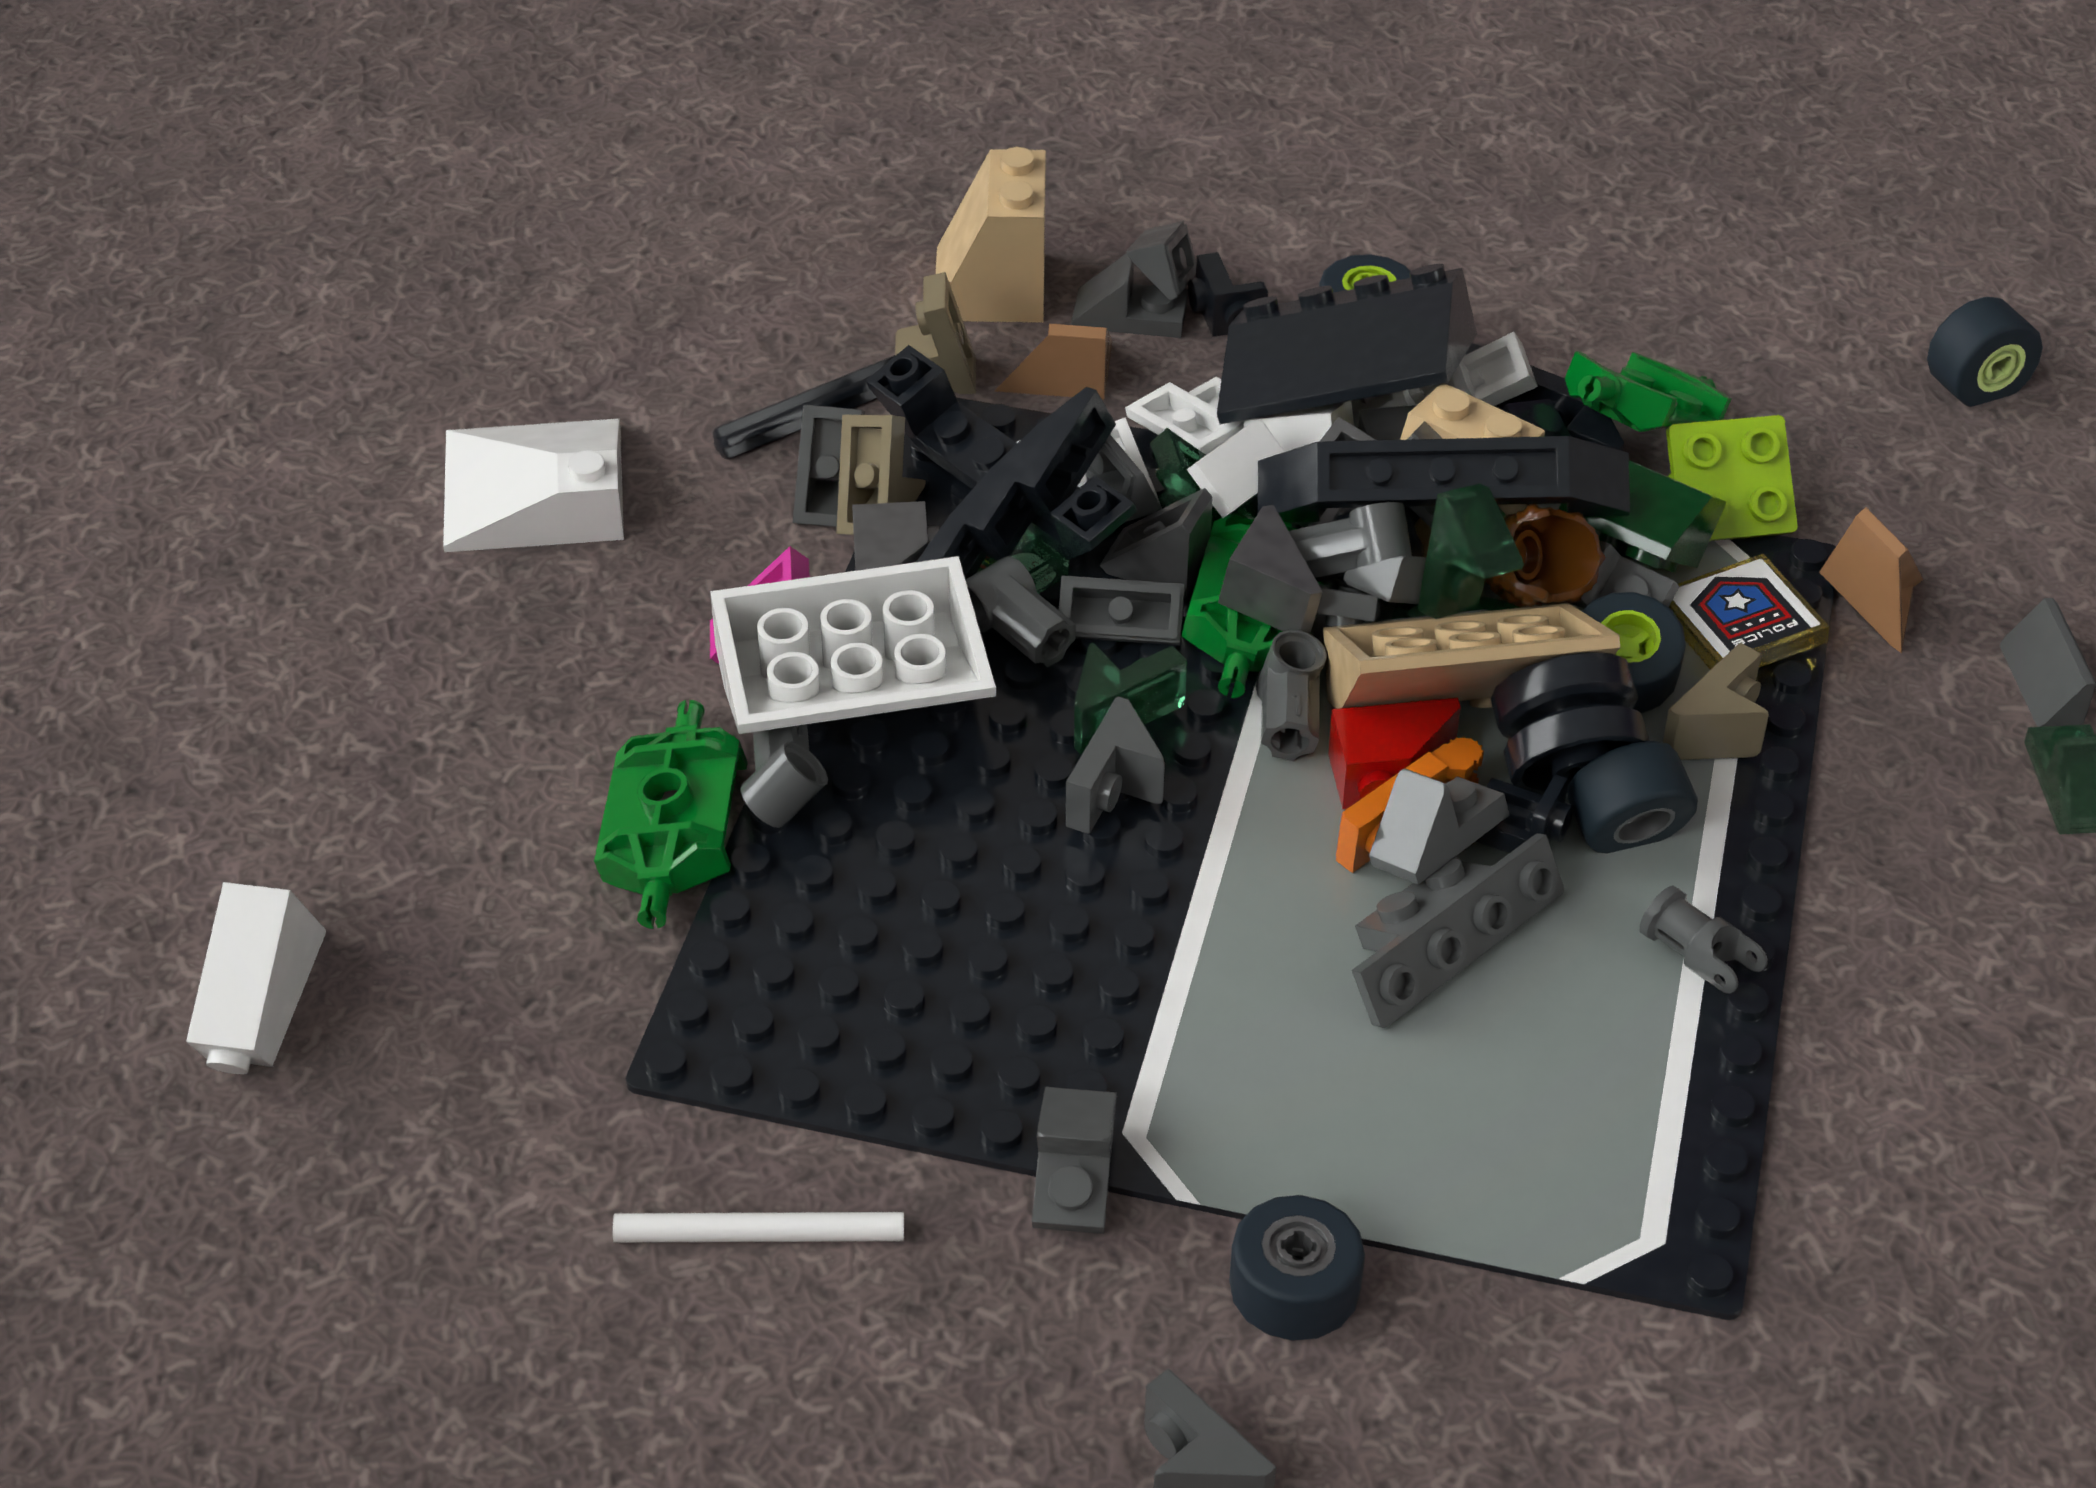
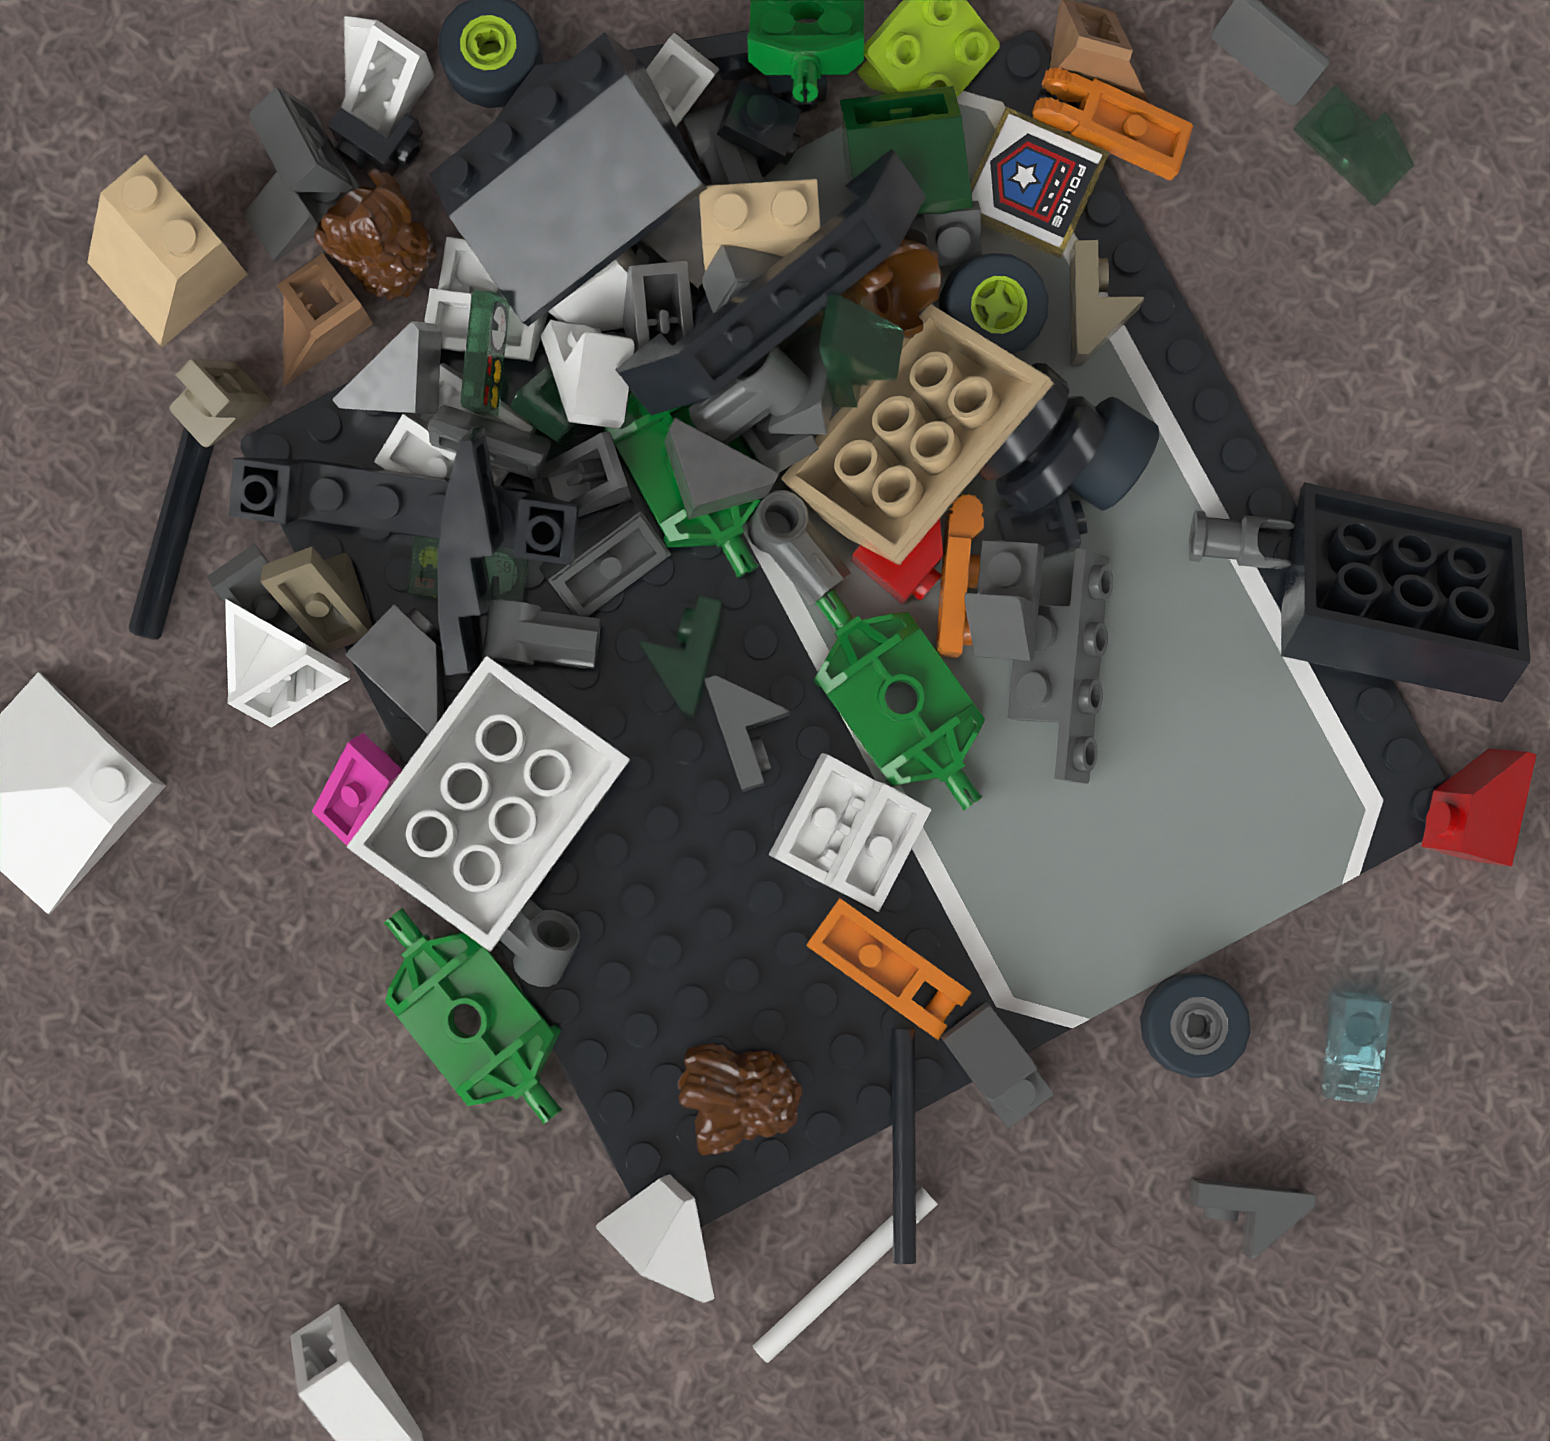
camera: 45 degrees left, 40 degrees up
(635, 1049) = (662, 1238): none -> white slope
(789, 501) = (272, 671): none -> white slope
(817, 981) = (737, 1096): none -> reddish brown hair
(920, 1154) = (904, 1145): none -> black bar
(1054, 1008) = (886, 967): none -> orange plate
(1113, 375) = (400, 376): none -> flat silver slope
(1126, 901) = (850, 832): none -> white slope
(1162, 327) = (377, 238): none -> reddish brown hair
(1178, 403) = (485, 353): none -> clear green tile
(1263, 885) = (903, 746): none -> green plate
(1279, 259) = (382, 74): none -> white slope
(1443, 1398) = (1355, 1045): none -> clear light blue leg
(1754, 1294) = (1481, 808): none -> red slope
(1827, 1082) = (1406, 594): none -> black slope
(1857, 623) = (1115, 122): none -> orange hinge

